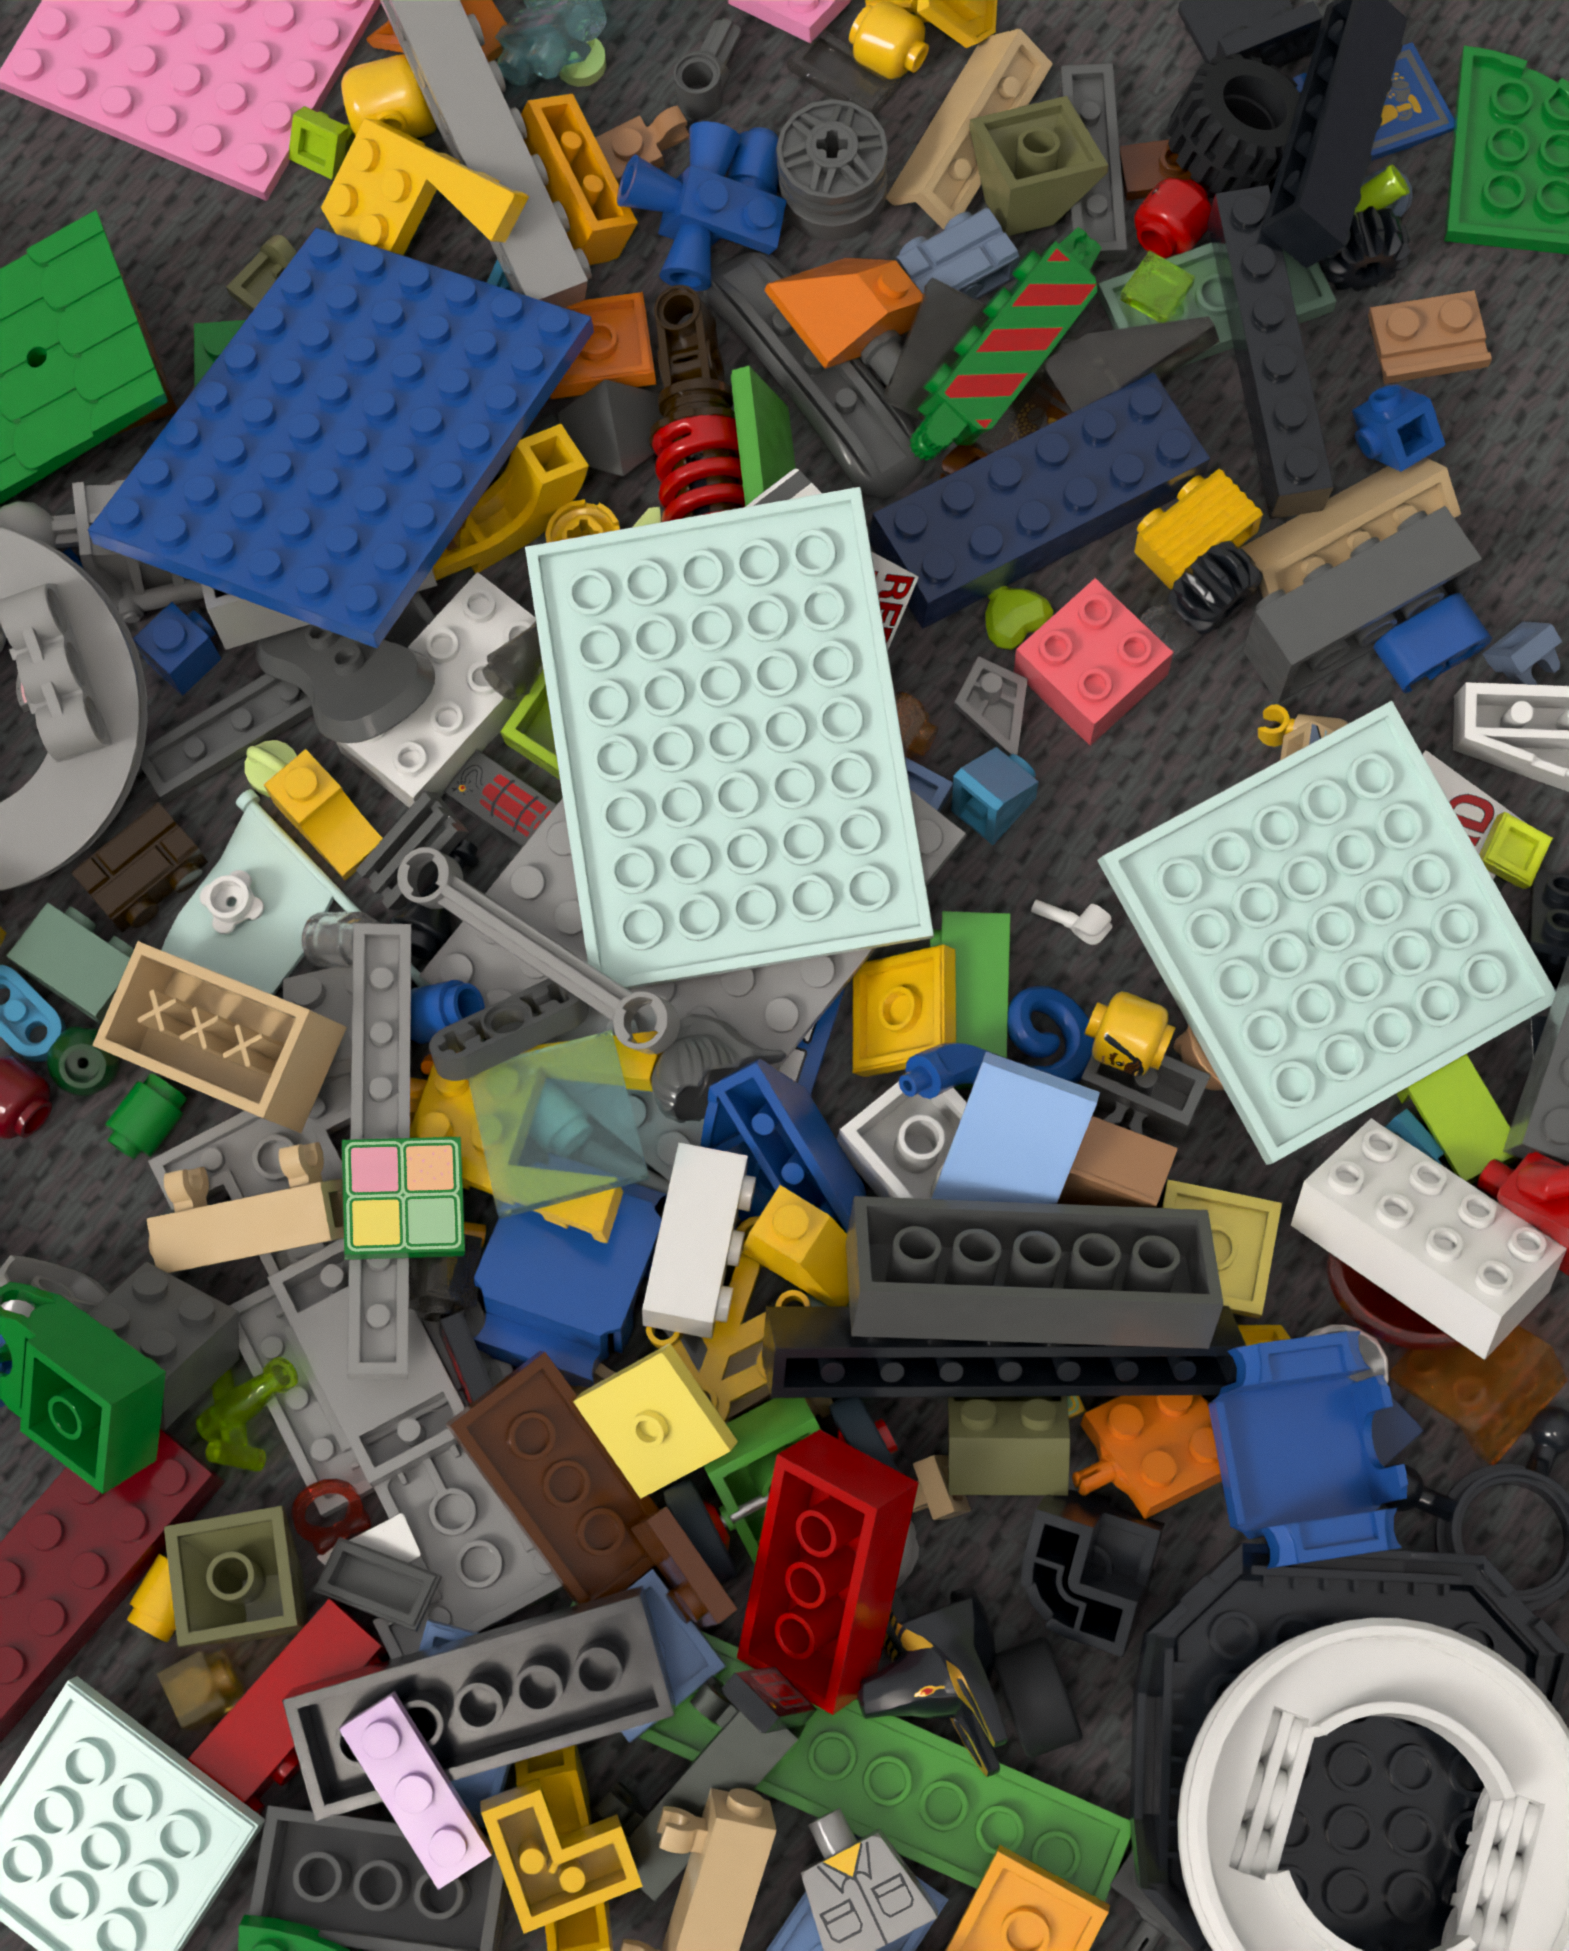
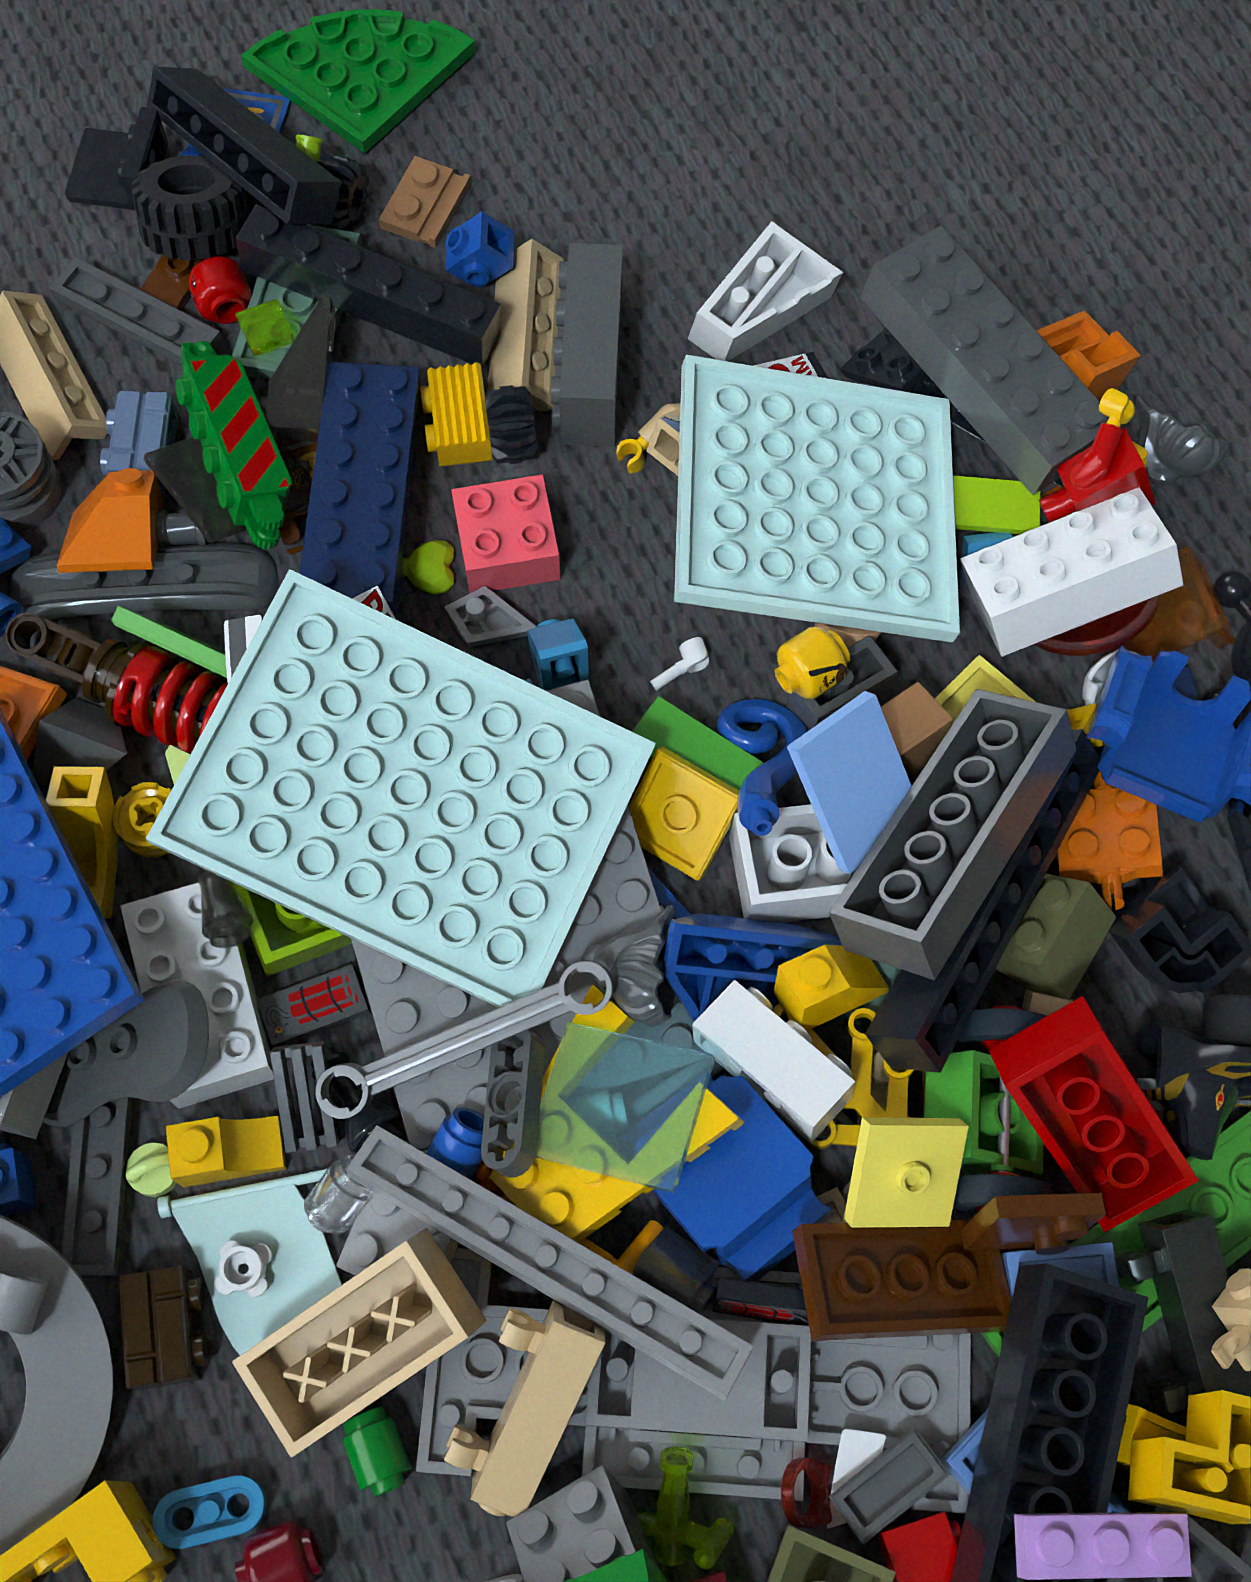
camera: 65 degrees left, 5 degrees down
(64, 1066) = (275, 1485): dark green plate -> none
(72, 960) = (205, 1432): sand green brick -> none
(402, 1198) = (605, 1263): tile -> none
(768, 1699) = (1176, 1216): black tile -> none
(1035, 163) = (109, 344): olive slope -> none
(1432, 641) = (642, 327): blue beam -> none
(1514, 850) = (820, 362): neon yellow tile -> none
(1522, 649) = (687, 279): sand blue tile -> none

